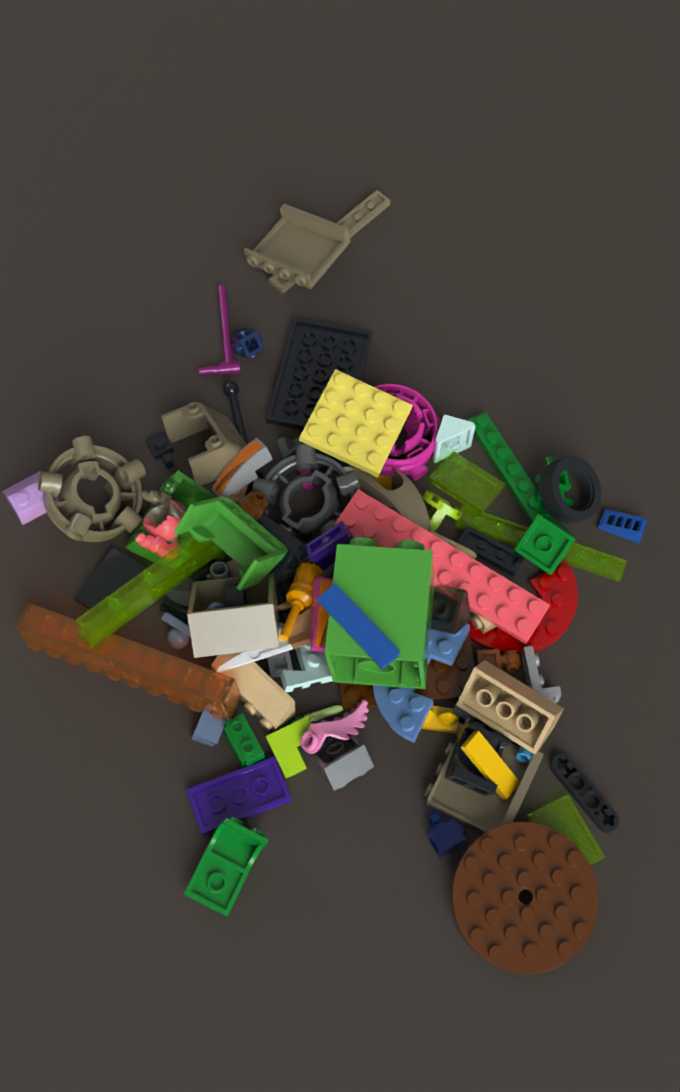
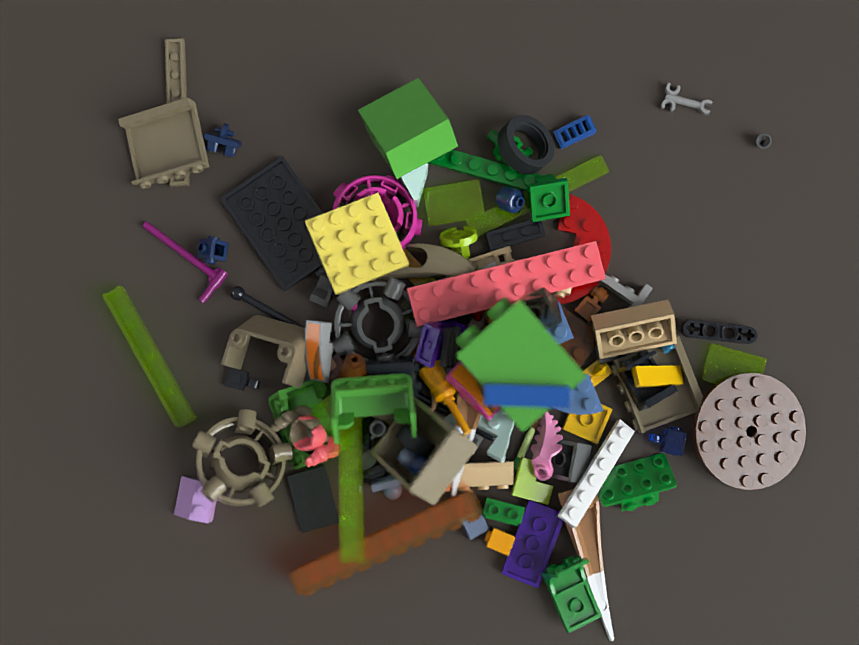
camera: 45 degrees left, 20 degrees up
(117, 371) = (149, 357): none -> clear neon green tile
(214, 761) = (499, 540): none -> light orange brick
(298, 821) = (587, 543): none -> medium nougat plate
(342, 292) = (214, 140): none -> dark blue hips
(352, 789) = (596, 473): none -> white plate
(376, 837) = (637, 483): none -> green bracket
(391, 750) = (588, 425): none -> yellow tile
(486, 390) = (408, 128): none -> bright green container
(513, 516) = (509, 199): none -> dark blue head

